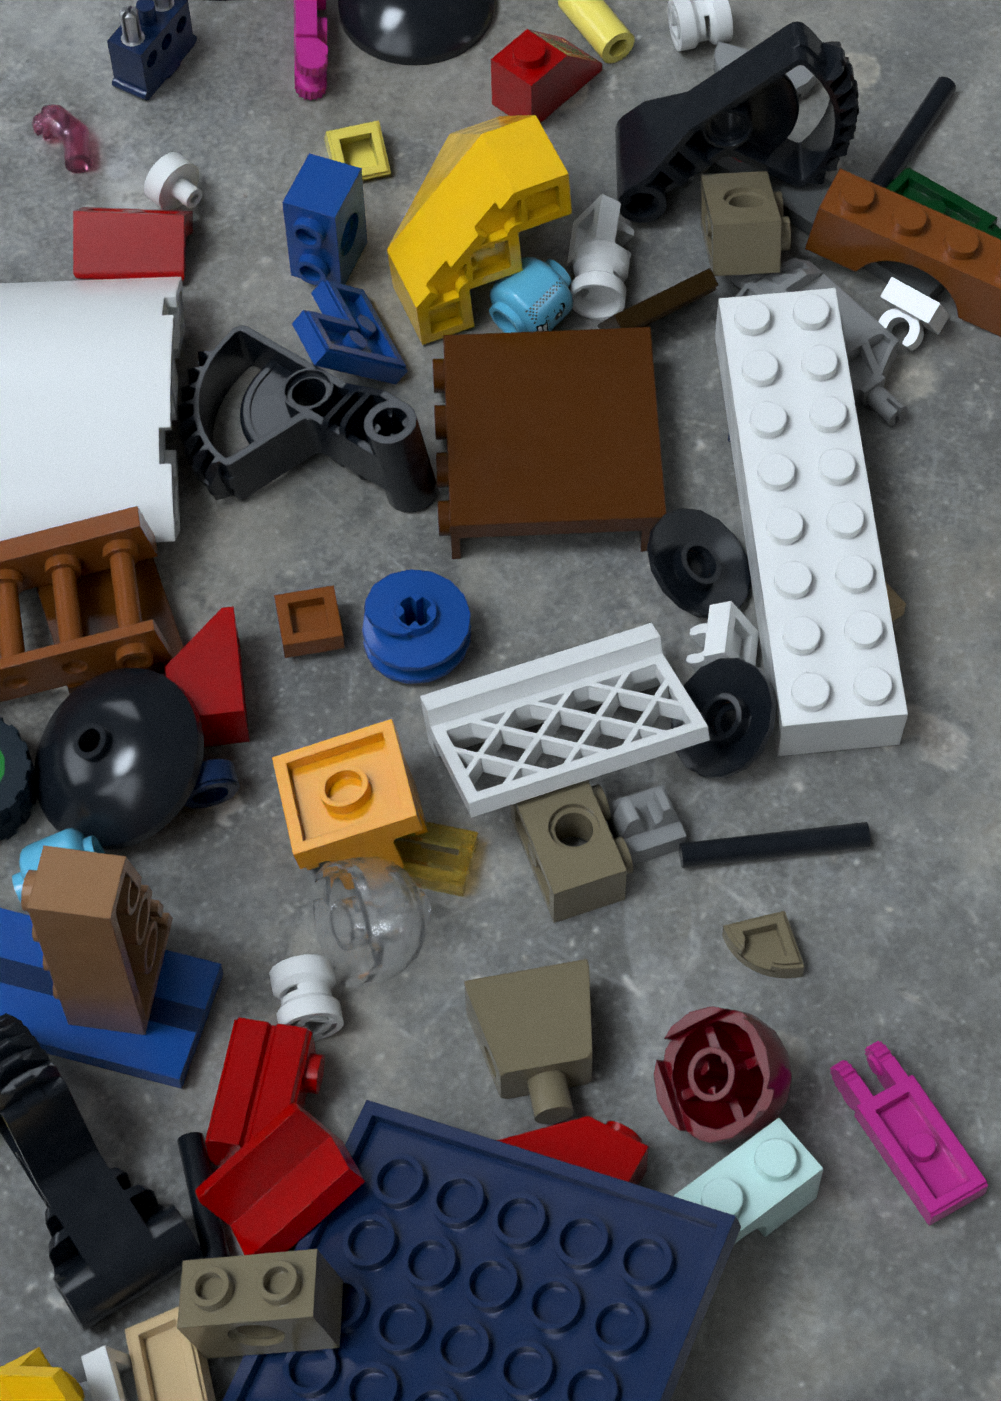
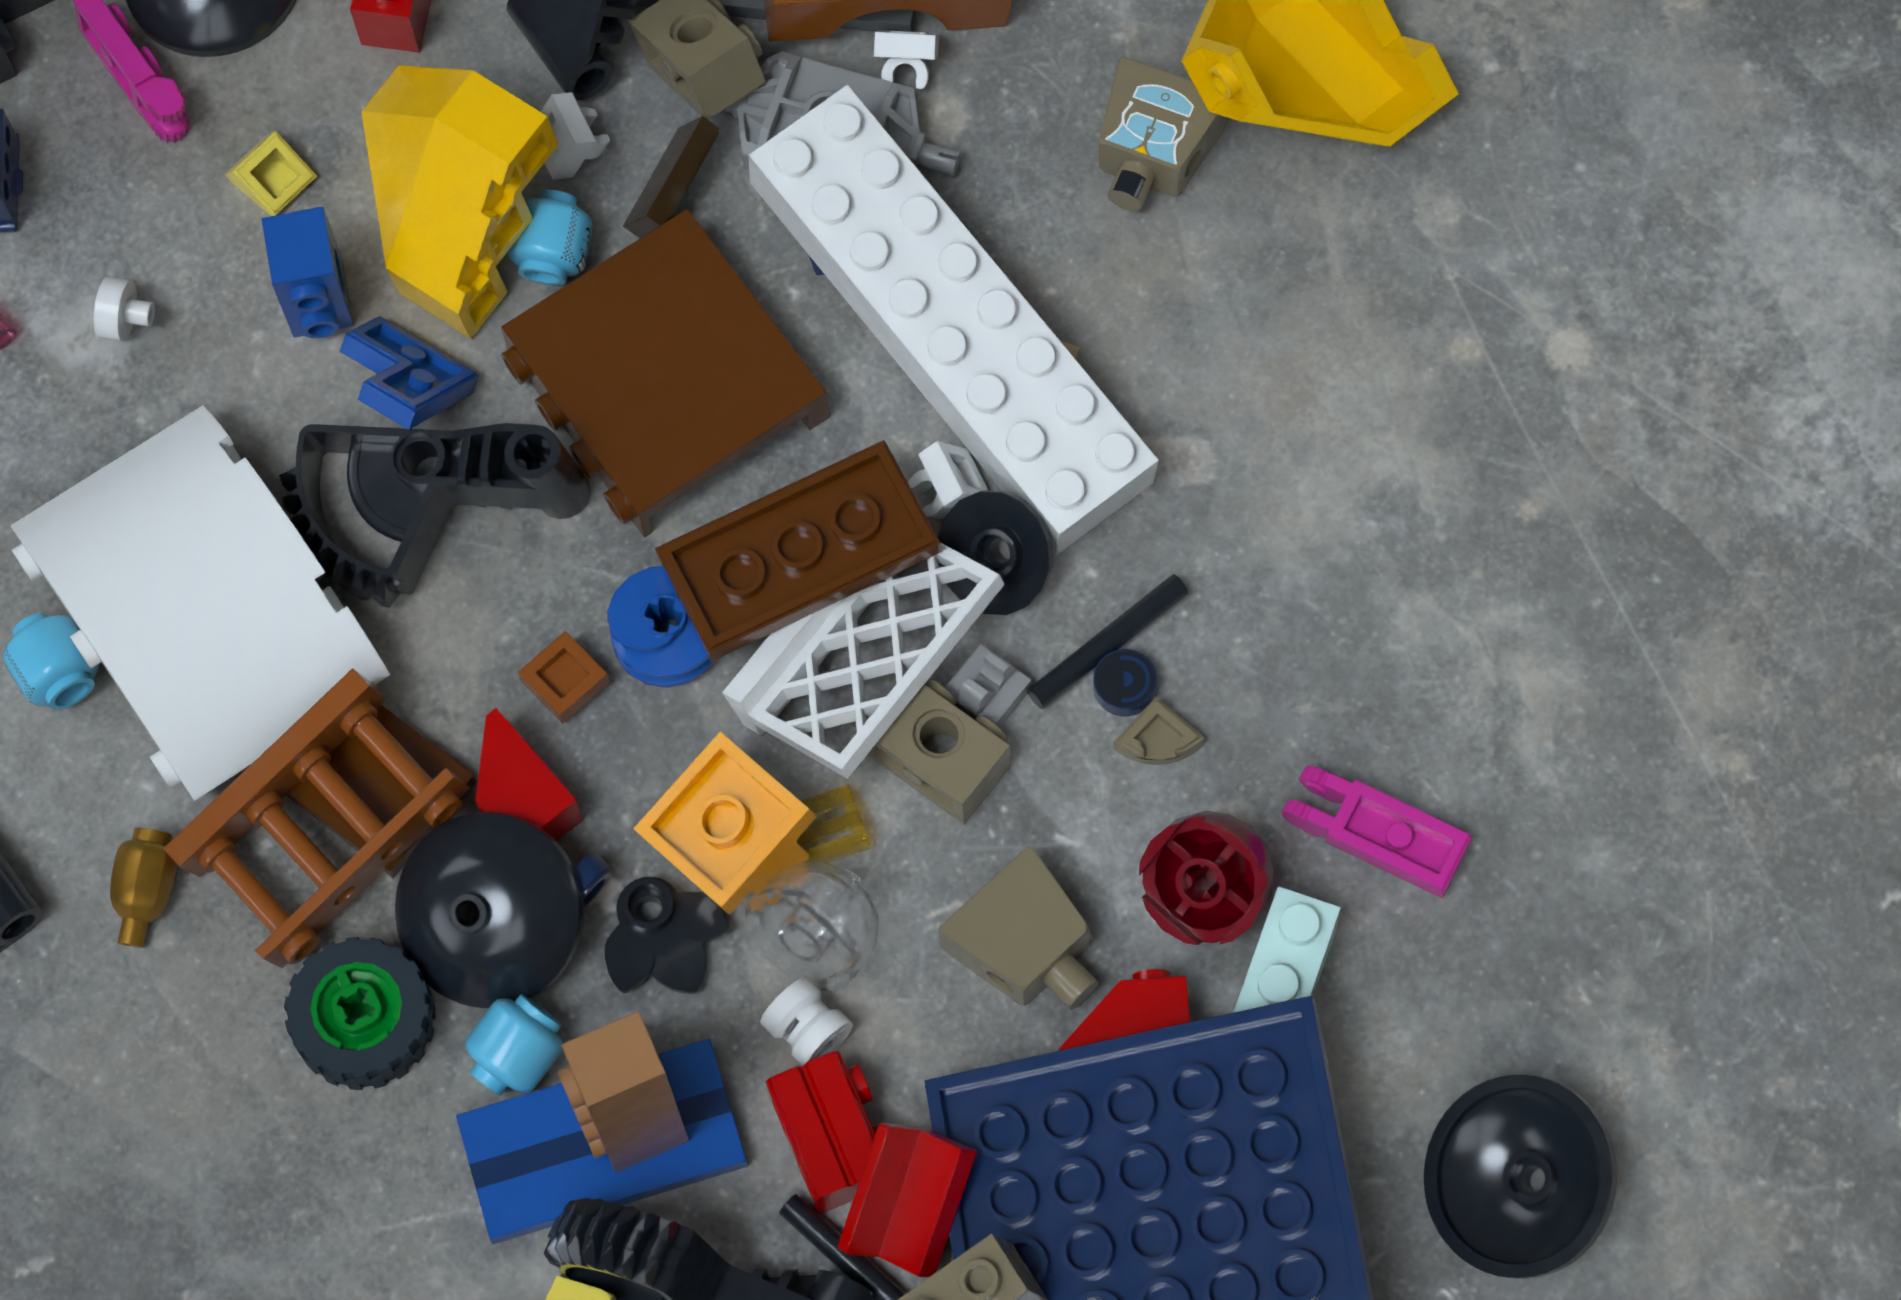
camera: 30 degrees left, 10 degrees up
(130, 243) = (120, 393): red panel -> none
(242, 871) = (667, 945): none -> black plate
(556, 619) = (798, 550): none -> reddish brown tile
(599, 279) = (597, 177): white wheel -> none
(697, 561) = (875, 405): black dish -> none
(766, 884) = (1125, 682): none -> black tile

